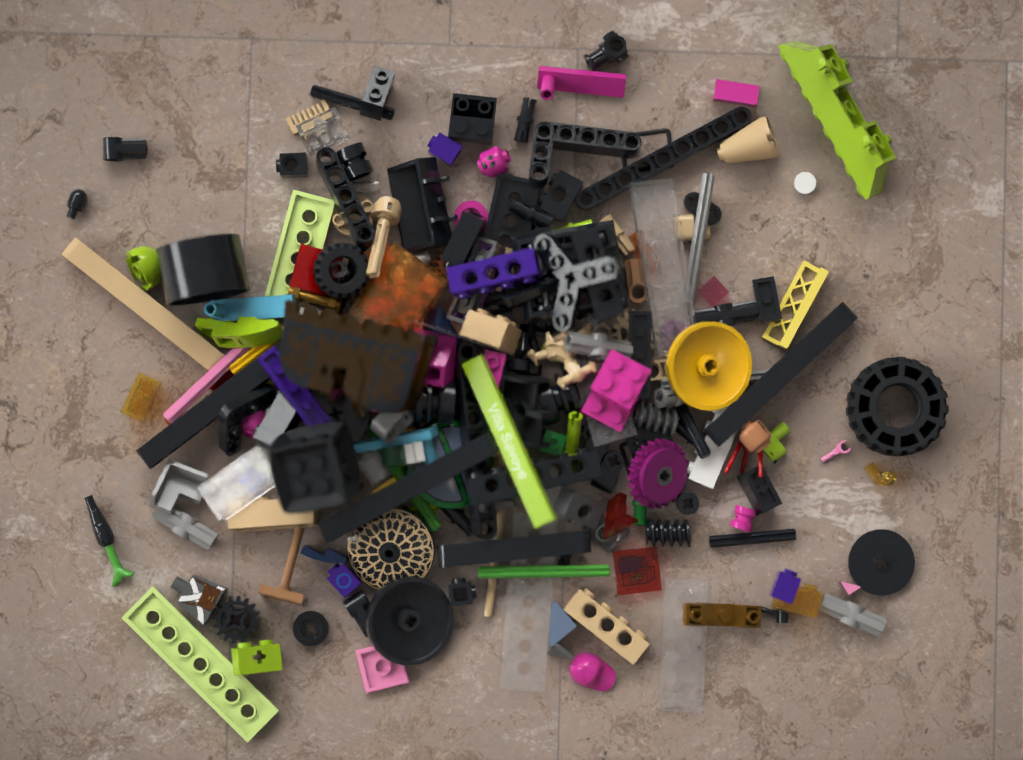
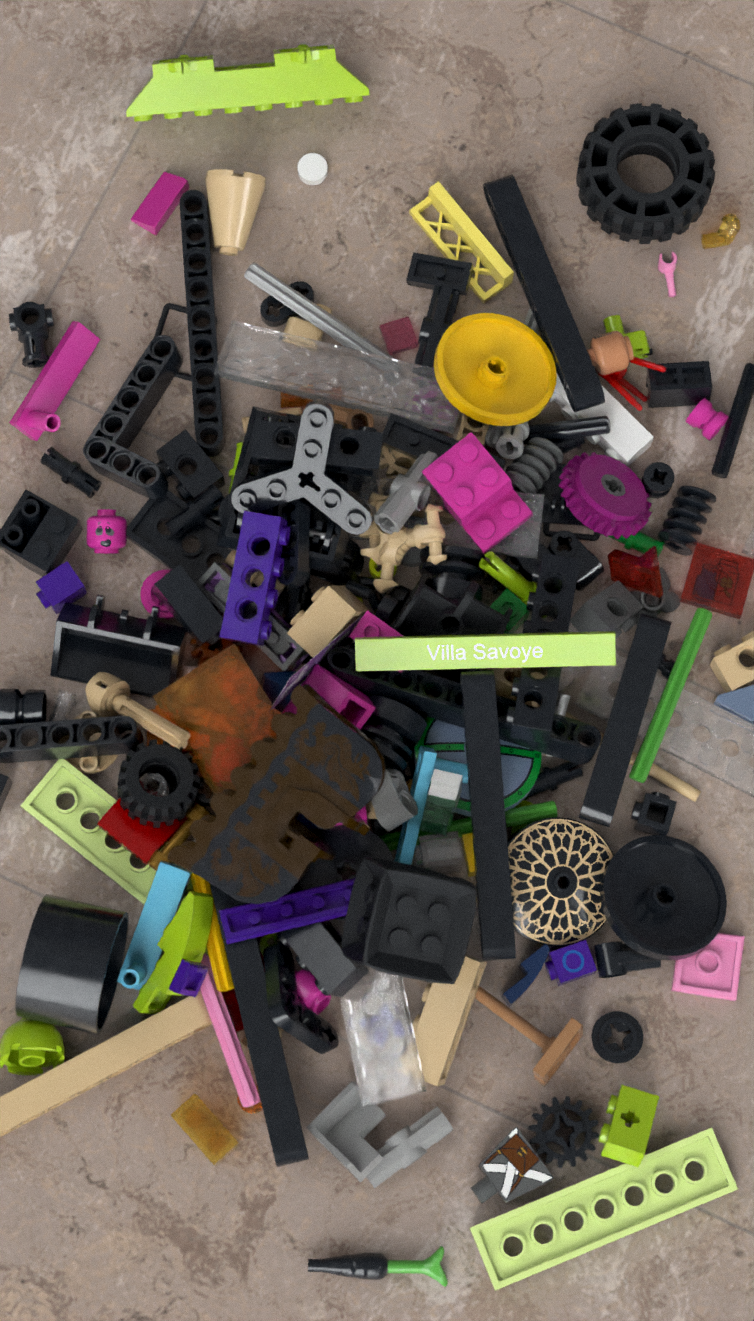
camera: 65 degrees left, 10 degrees down
(227, 345) = (188, 978): none -> dark purple tile

